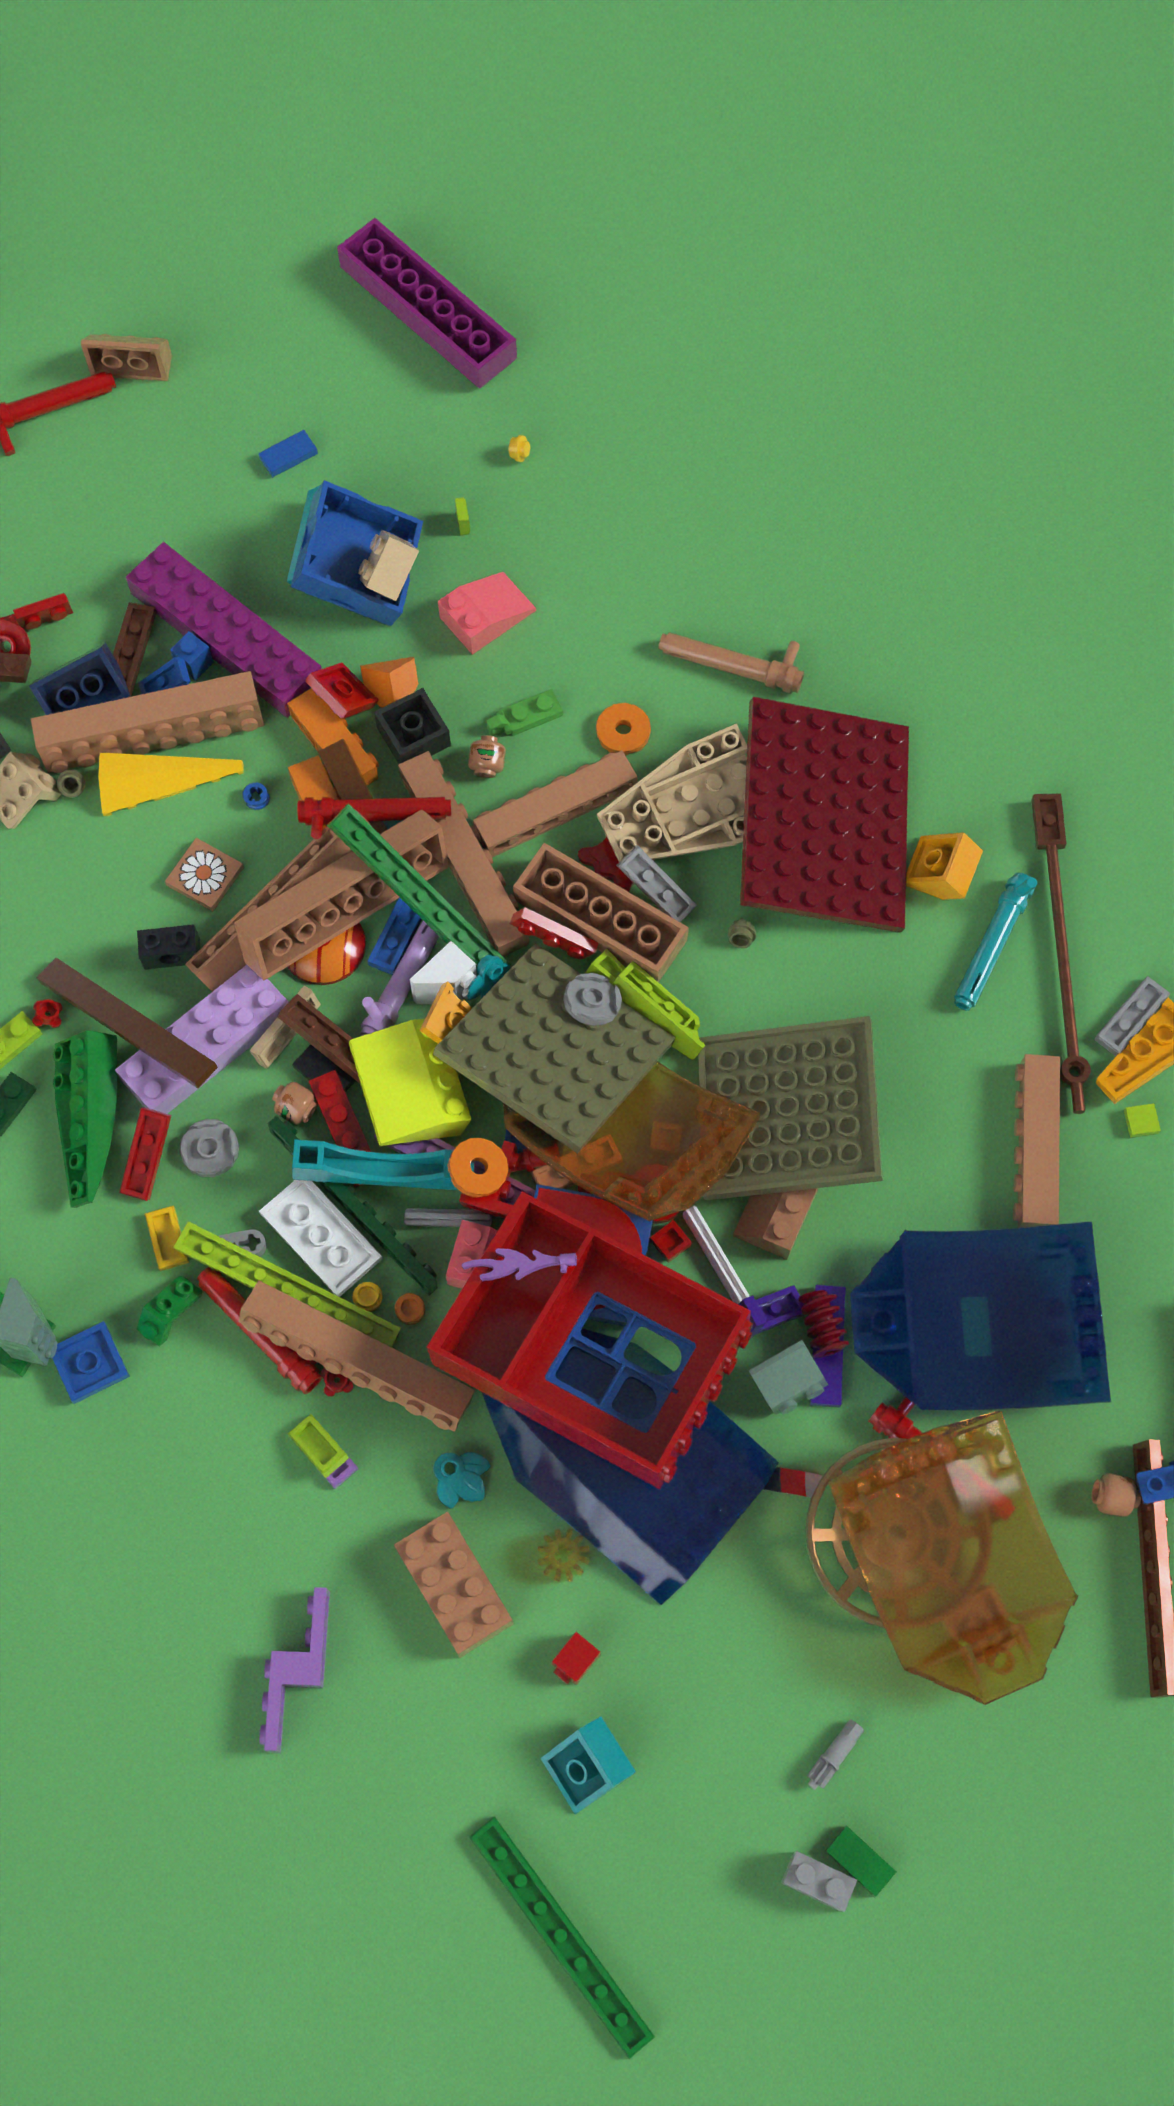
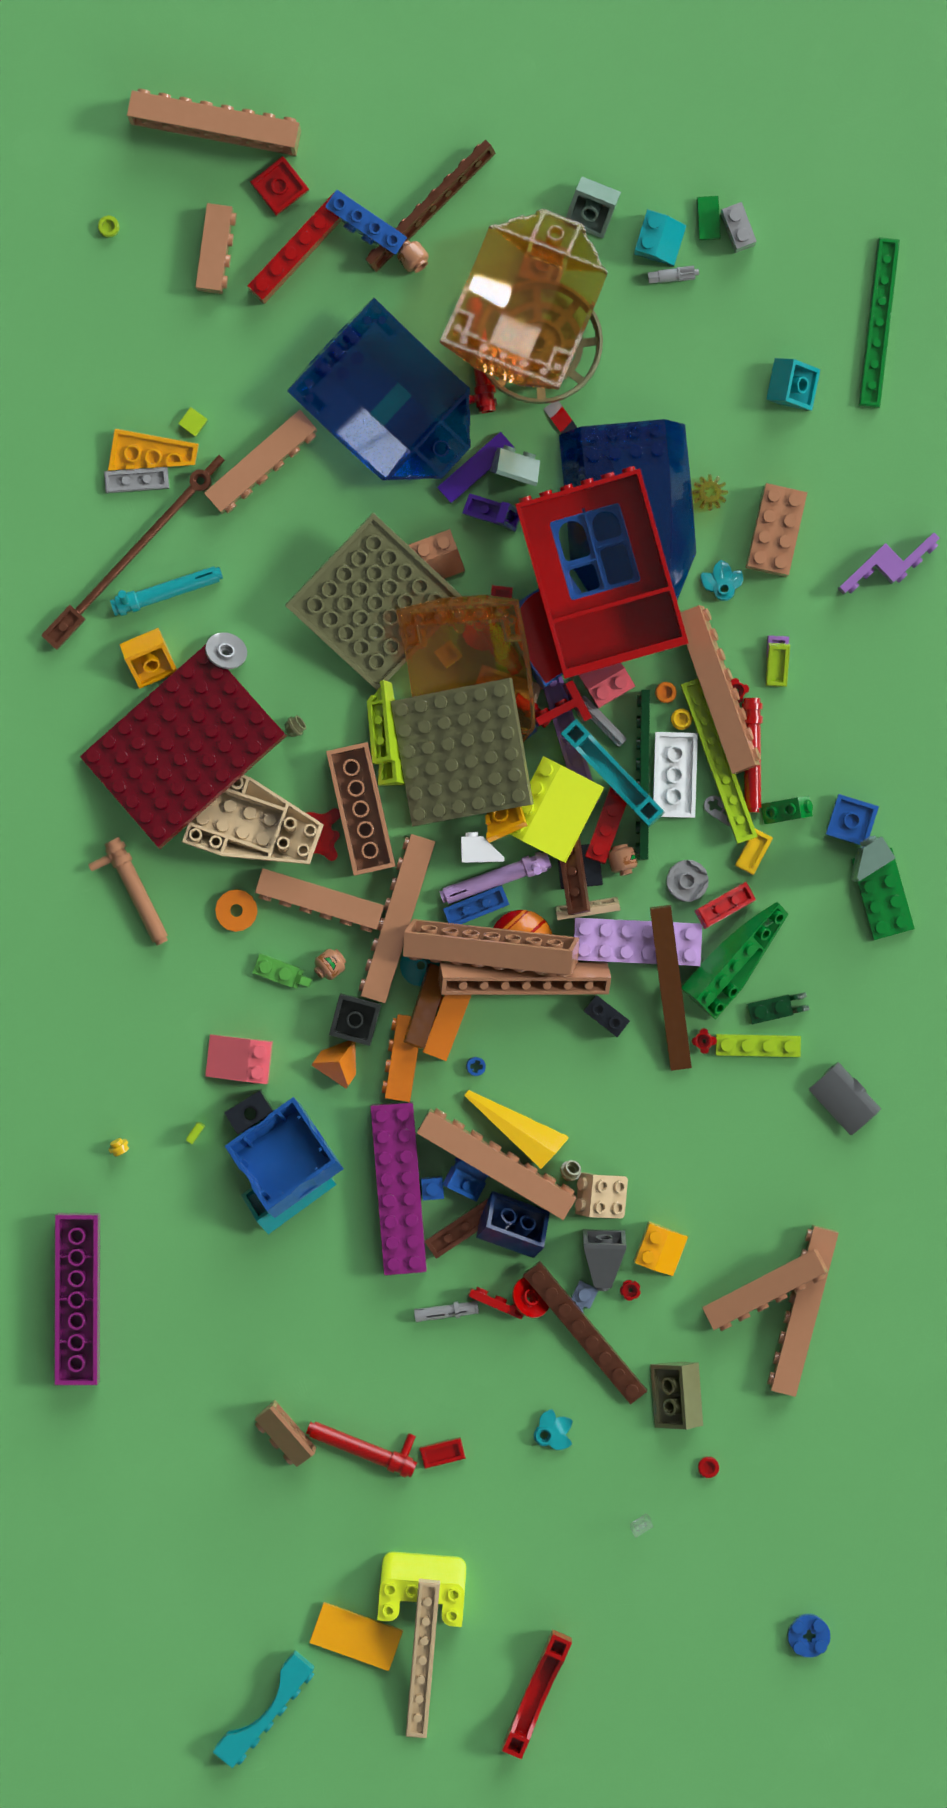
camera: 130 degrees left, 20 degrees up
(68, 579) = (446, 1311): none -> light grey pin
(204, 874) = (547, 1045): tile -> none
(288, 453) = (253, 1276): blue tile -> none
(322, 812) = (451, 1007): red cylinder -> none
(341, 690) = (371, 1081): red plate -> none
(387, 564) = (276, 1128): tan brick -> none
(409, 885) = (453, 904): green tile -> none
(432, 587) = (237, 1116): none -> black brick
(482, 1151) = (559, 713): orange tile -> none
(490, 971) = (456, 827): teal plate -> none
(517, 1261) = (604, 643): medium lavender piece -> none
(553, 933) = (400, 818): red plate -> none
(575, 1659) = (752, 438): red brick -> none
(592, 999) = (416, 760): light grey tile -> none
(656, 884) = (315, 795): light grey tile -> none
(715, 1254) = (487, 560): white axle -> none
(822, 1323) = (470, 476): dark red piece -> none
(889, 1781) = (660, 238): none -> teal slope
(892, 939) = (226, 644): none -> light grey dish
(993, 1741) = (593, 206): none -> sand green slope

